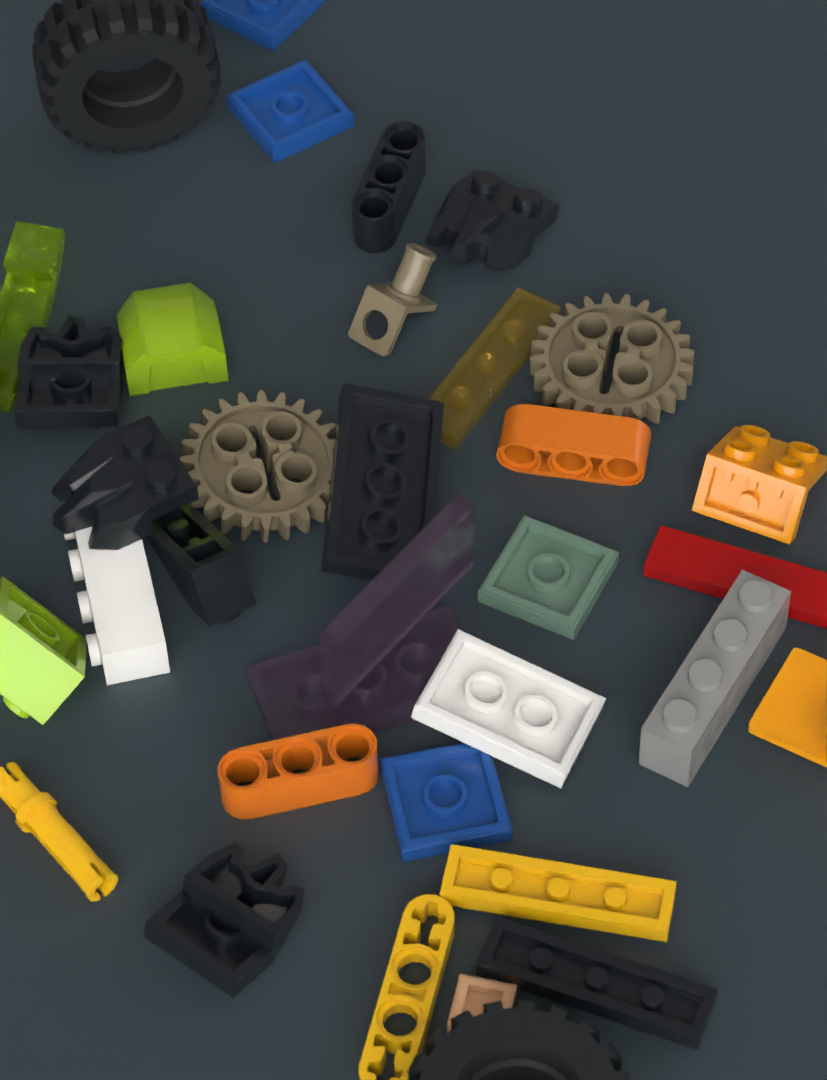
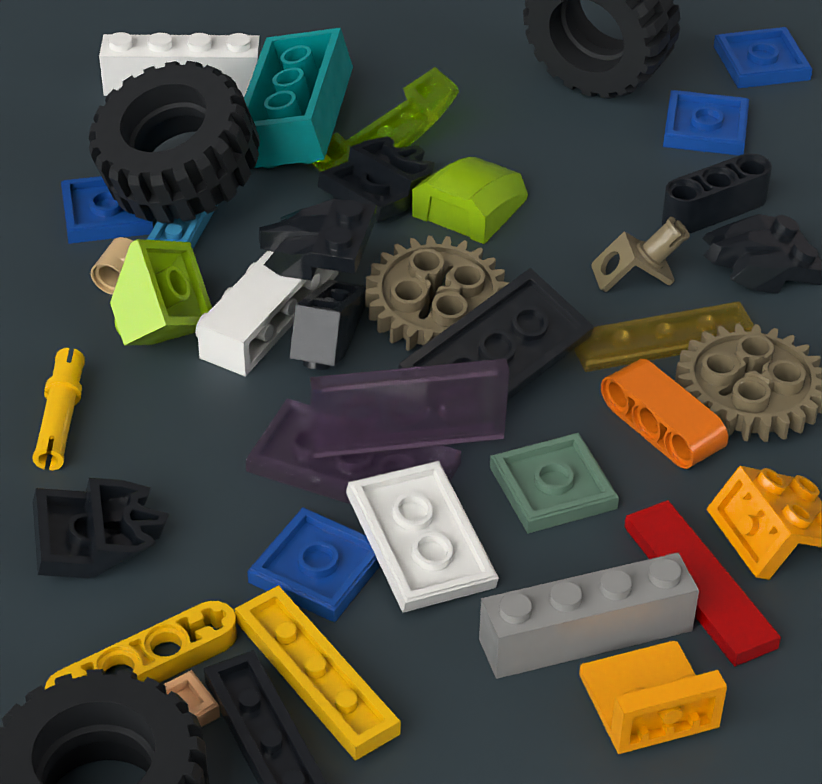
camera: 40 degrees right, 10 degrees down
(318, 752) = (240, 476): orange beam -> none

